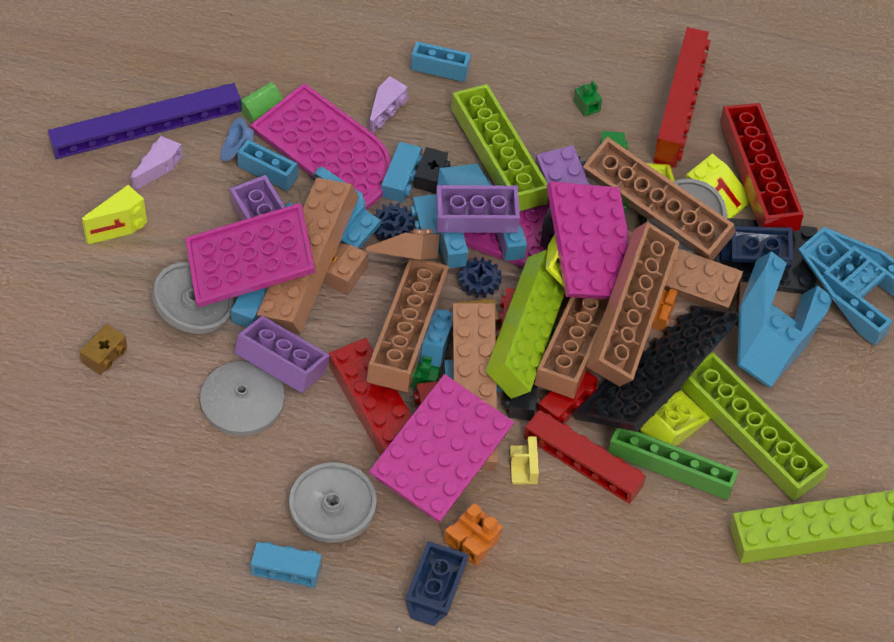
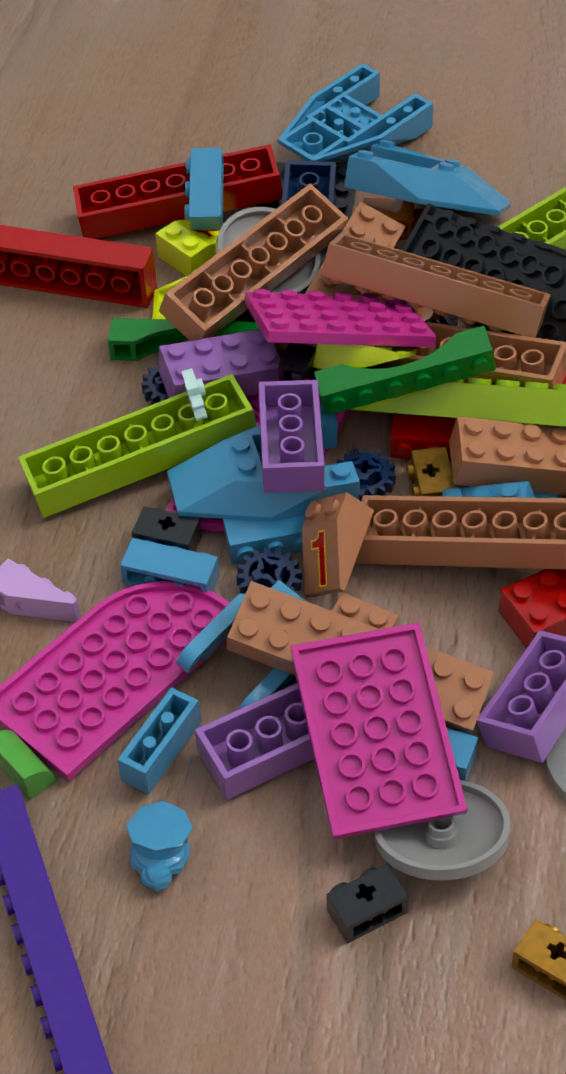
camera: 85 degrees left, 5 degrees down
(115, 217) = (272, 950): neon yellow slope -> none
(150, 260) = (366, 902): none -> black brick
(160, 160) = (136, 908): lavender slope -> none
(199, 166) = (159, 843): none -> dark azure piece
(236, 137) = (102, 793): medium blue piece -> none
(524, 162) = (195, 391): none -> light aqua plate
(541, 300) = (351, 387): none -> green arch
(588, 99) = (39, 361): green brick -> none
(743, 172) = (205, 189): none -> dark azure brick

